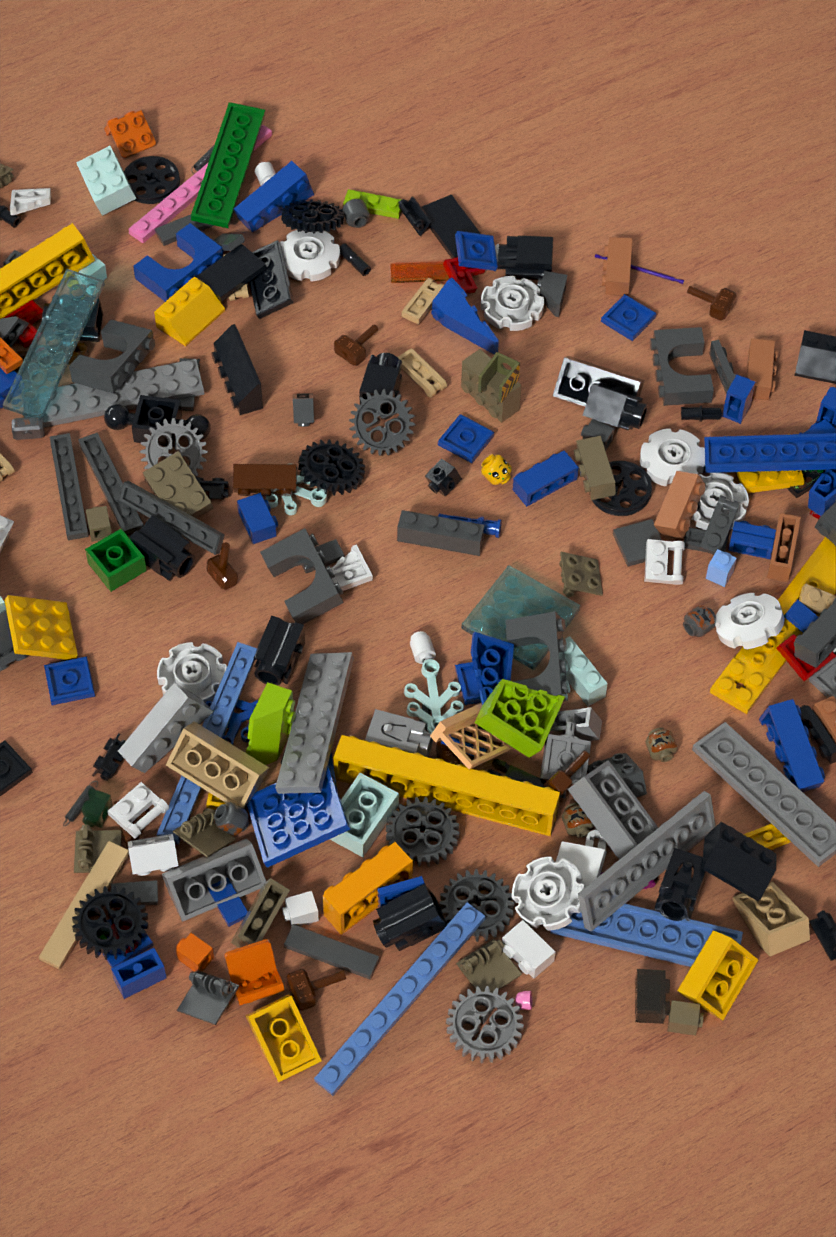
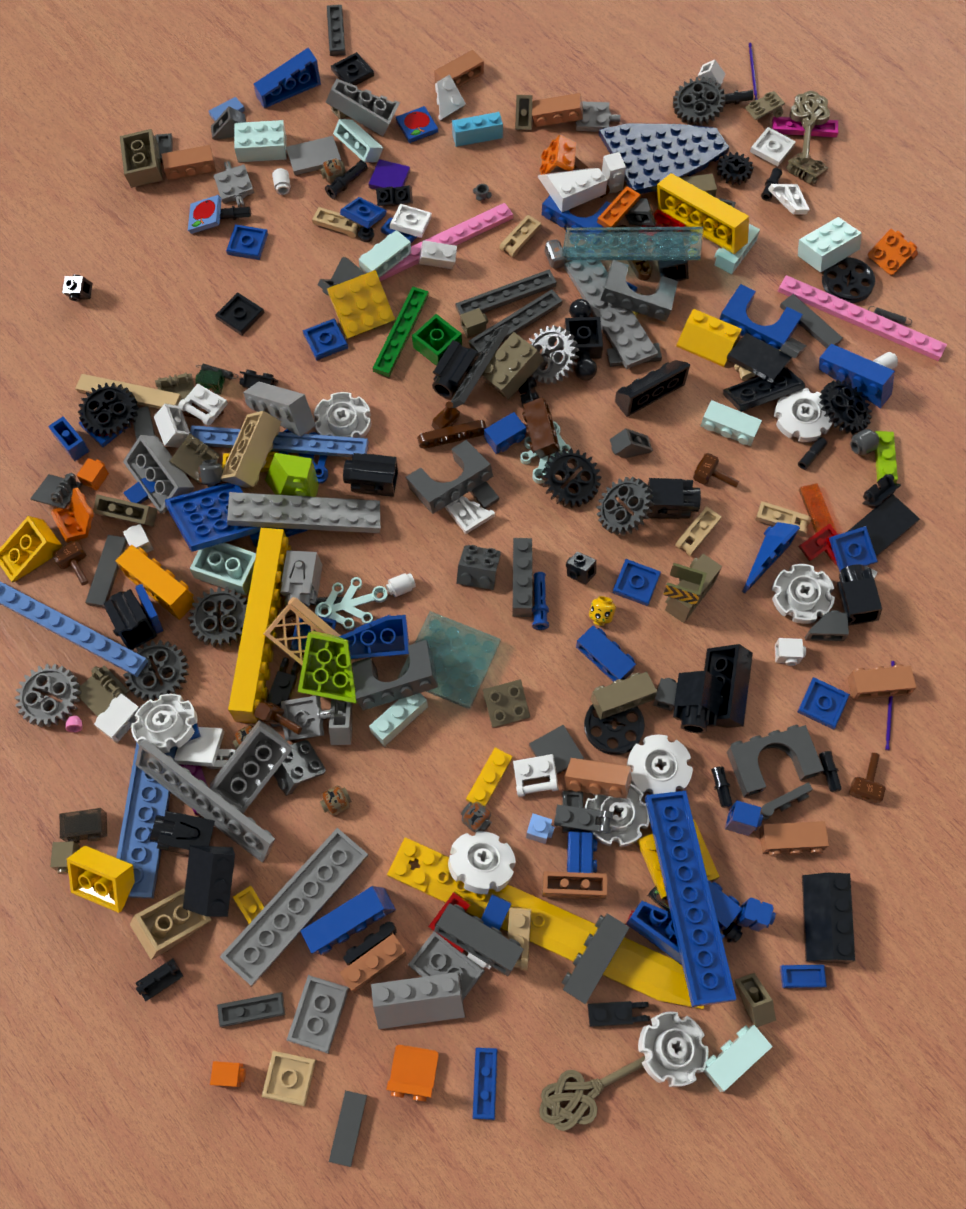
camera: 80 degrees right, 10 degrees up
(86, 598) = (400, 331): none -> green plate
(228, 165) = (881, 329): green plate -> none
(243, 569) = (451, 434): none -> reddish brown beam
(301, 316) = (730, 423): none -> light aqua brick
(419, 569) = (478, 567): none -> dark grey bracket
(572, 328) = (789, 651): none -> white brick
(657, 605) = (489, 777): none -> yellow plate
(707, 327) = (830, 771): none -> black axle

